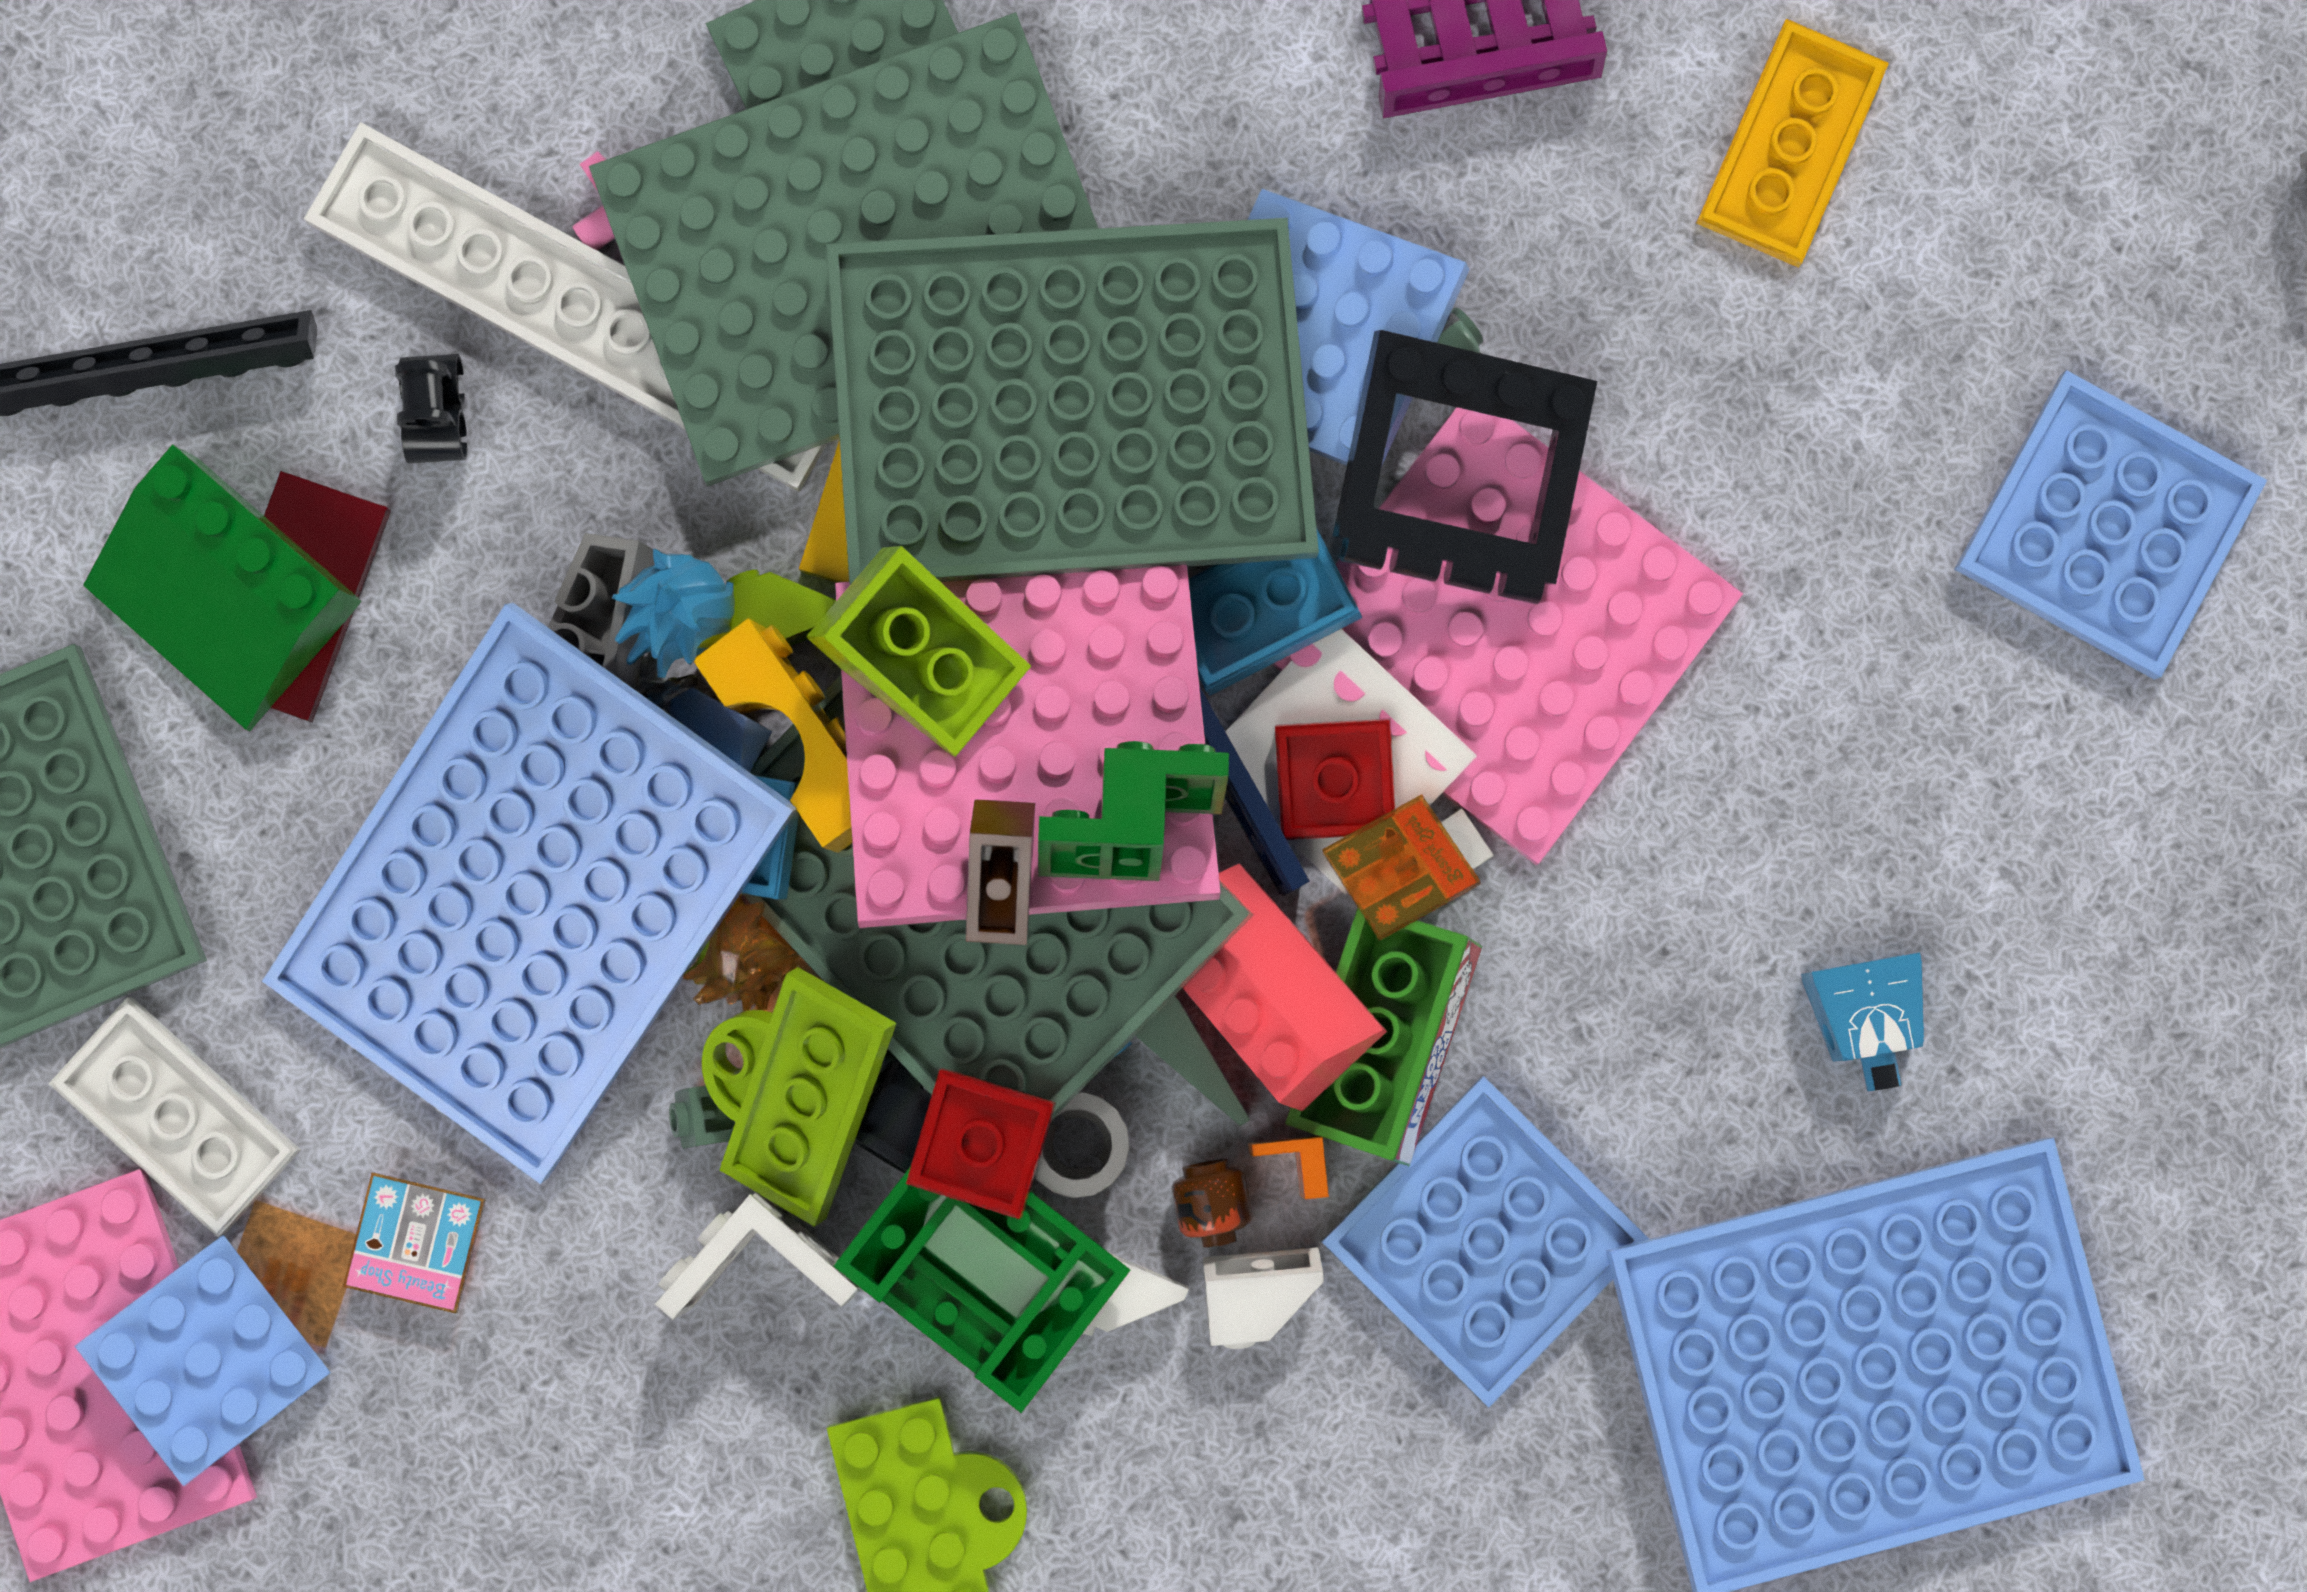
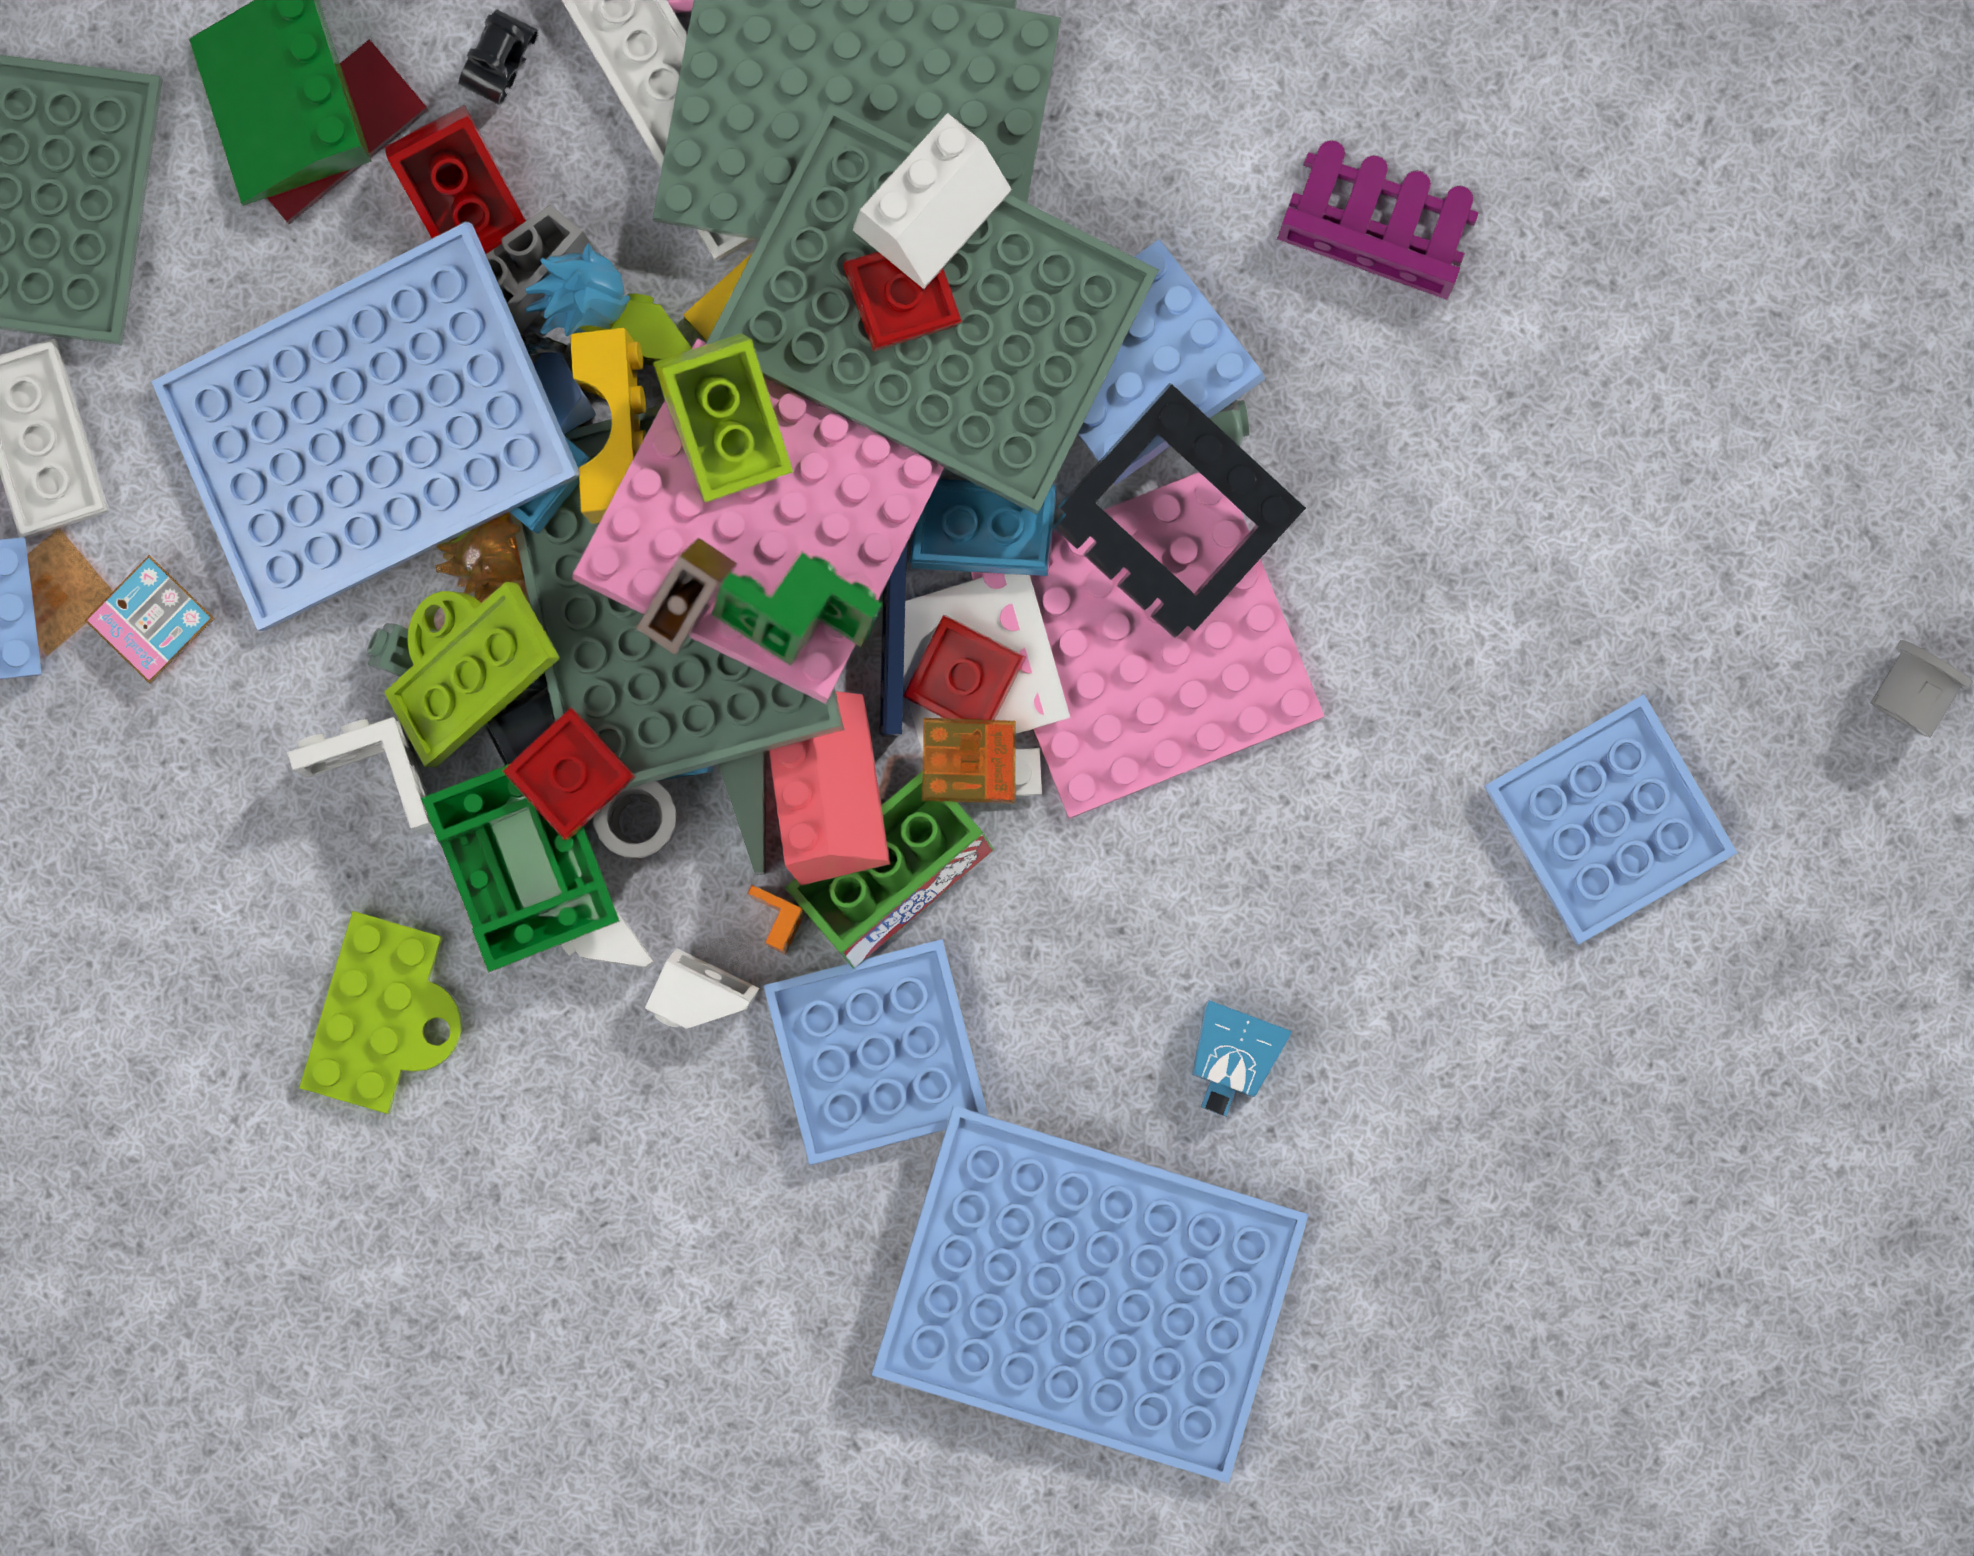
camera: 30 degrees right, 0 degrees up
(464, 567) = (455, 179): none -> red slope
(1005, 282) = (933, 201): none -> white slope
(1029, 402) = (895, 305): none -> red tile
(1212, 1202) = (704, 913): reddish brown head -> none
(1792, 143) = (1552, 424): yellow tile -> none

